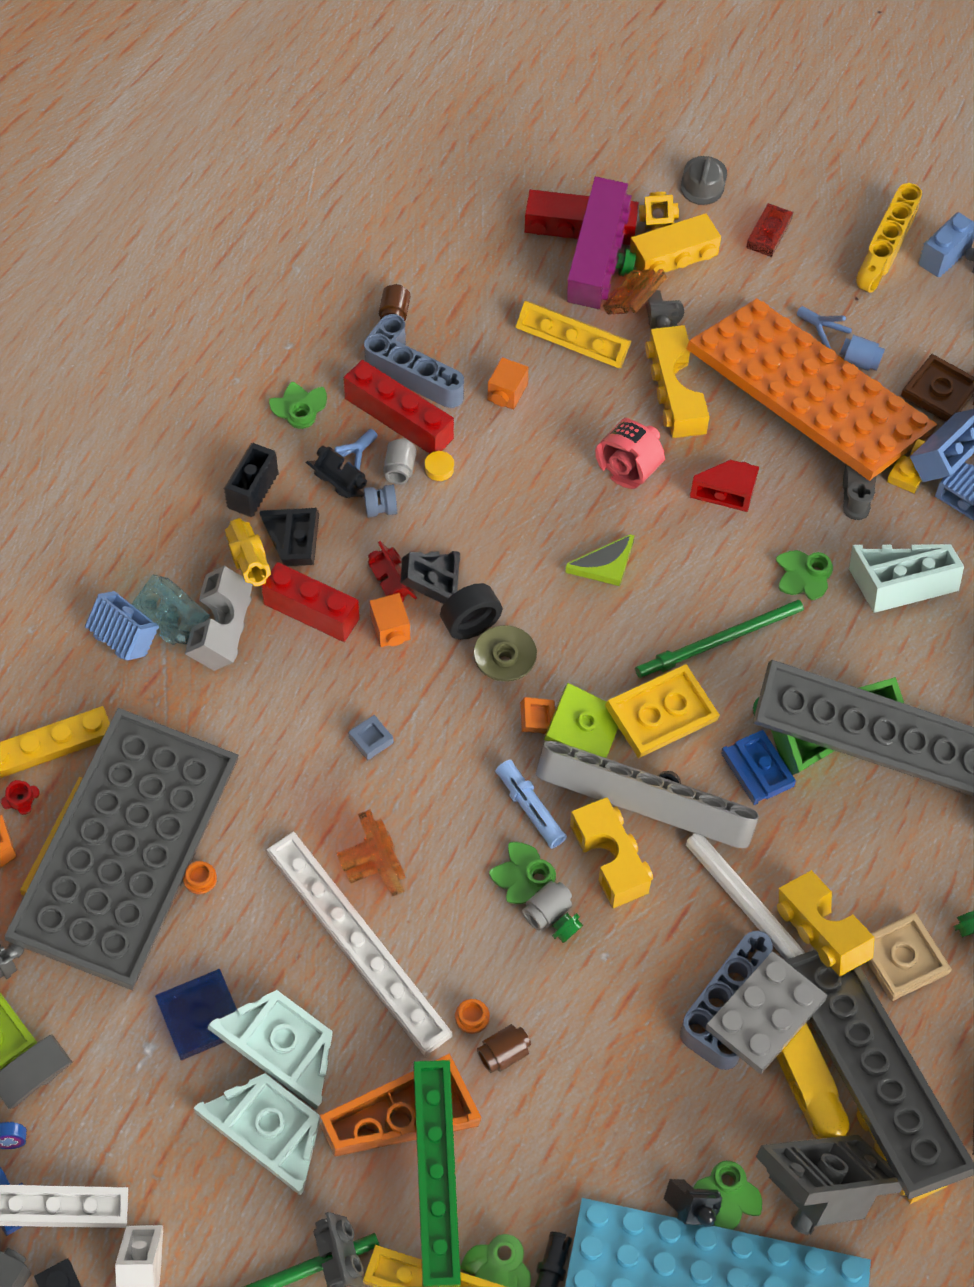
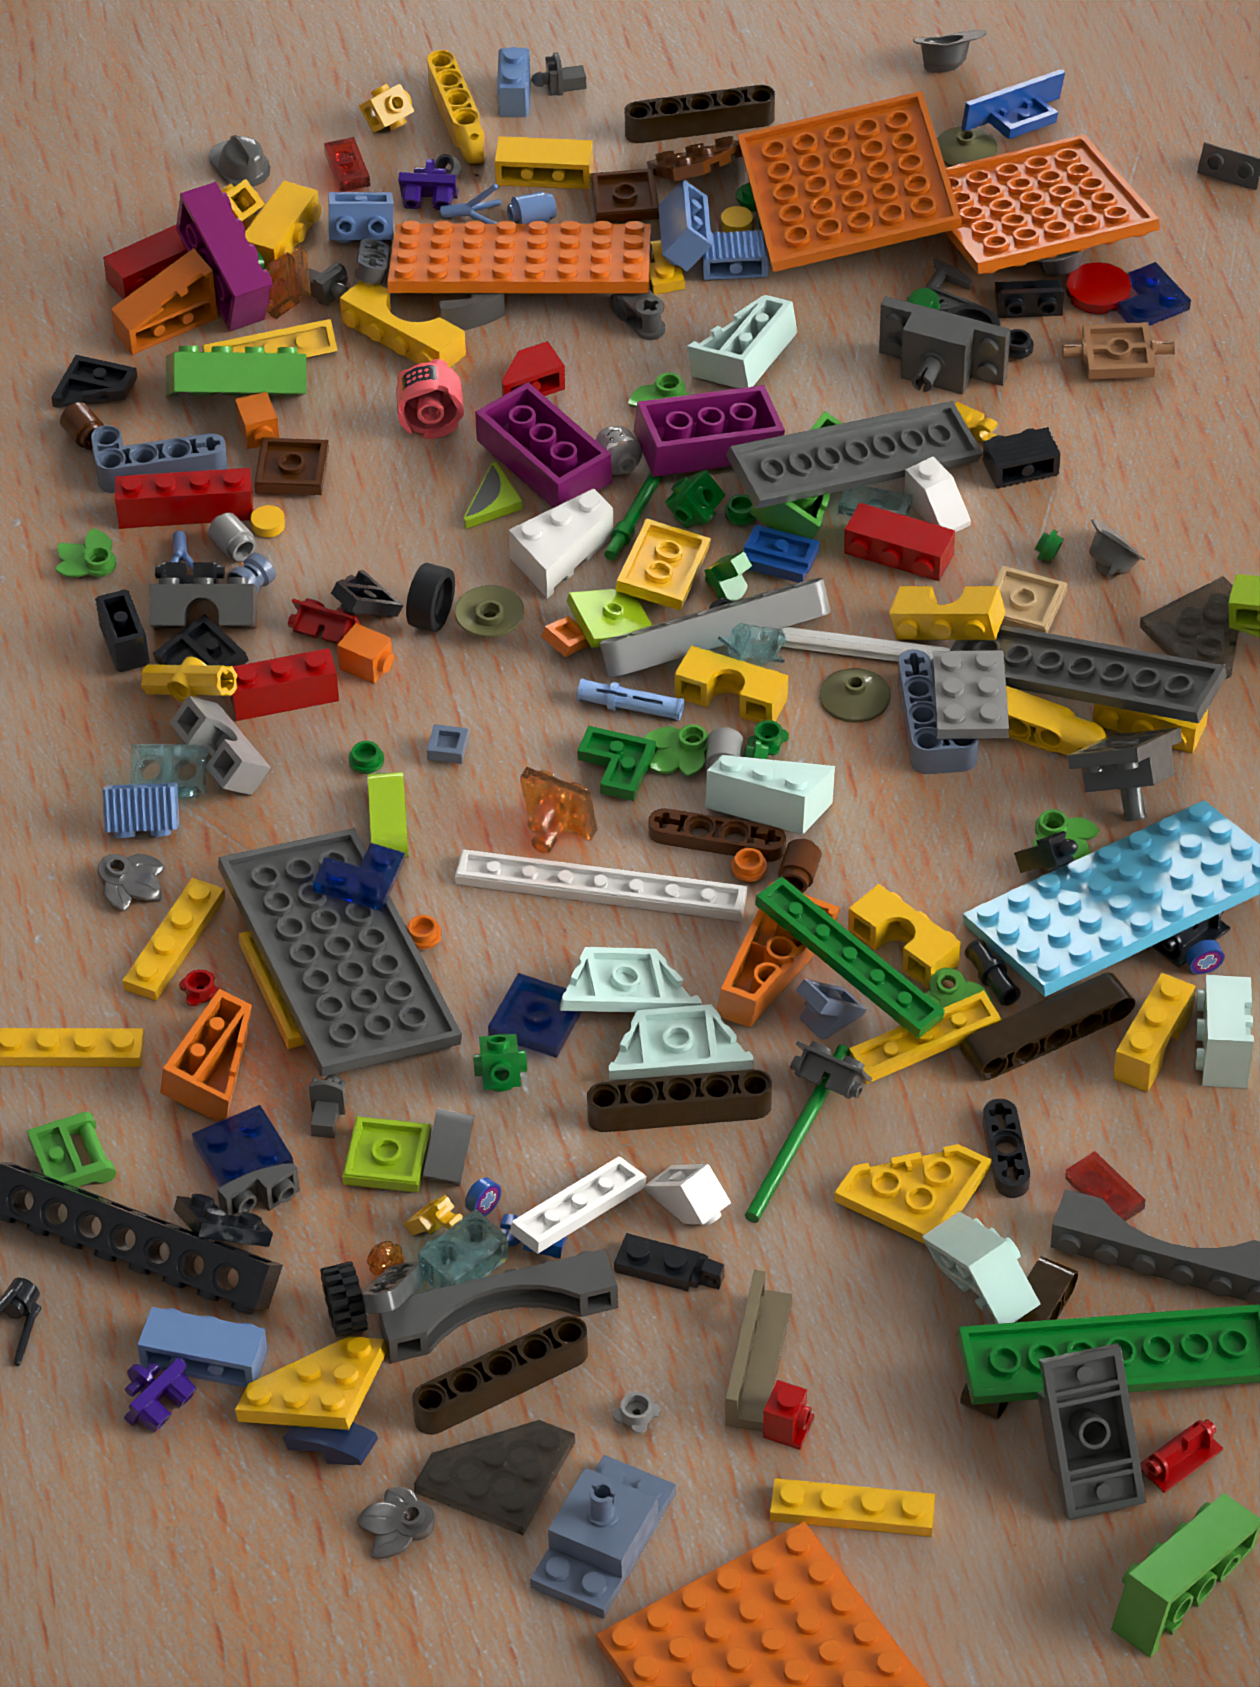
camera: 40 degrees left, 10 degrees down
(70, 677) = (134, 880): none -> flat silver plate
(129, 1033) = (500, 1062): none -> green brick
(196, 809) = (361, 885): none -> clear blue plate
(225, 1192) = (679, 1100): none -> dark brown beam
(272, 763) = (388, 811): none -> lime beam
(309, 703) = (366, 757): none -> green plate
(341, 512) = (172, 602): none -> dark grey arch
(395, 1191) = (828, 1007): none -> sand blue slope
(435, 277) = (93, 382): none -> black wing
(478, 850) = (623, 755): none -> green plate
(481, 966) = (718, 830): none -> reddish brown beam
(495, 435) = (291, 466): none -> reddish brown plate
(516, 1148) = (885, 917): none -> yellow arch
(522, 337) = (236, 373): none -> bright green wedge
(534, 253) = (167, 304): none -> orange wedge
(543, 970) = (770, 791): none -> light aqua wedge
(598, 908) = (770, 734): none -> green plate
(612, 634) = (560, 539): none -> white wedge
(655, 833) = (755, 643): none -> clear light blue hinge
(672, 550) = (543, 446): none -> magenta brick
(698, 758) = (727, 576): none -> green piece
(698, 945) = (855, 695): none -> olive dish
(699, 322) = (371, 261): none -> dark grey beam
(724, 591) = (623, 448): none -> light grey head
(732, 275) = (360, 216): none -> medium blue brick
(737, 675) = (695, 499): none -> green brick
(740, 406) = (473, 311): none -> dark grey slope
(801, 626) = (699, 428): none -> magenta brick
(810, 280) = (427, 183): none -> dark purple hips
(828, 201) = (387, 108): none -> yellow brick
(836, 279) = (444, 159): none -> dark grey hinge
(856, 828) = (899, 541): none -> red brick
(873, 784) = (876, 497): none -> clear light blue plate
(907, 321) = (544, 162): none -> yellow brick
(923, 813) = (936, 495): none -> white slope

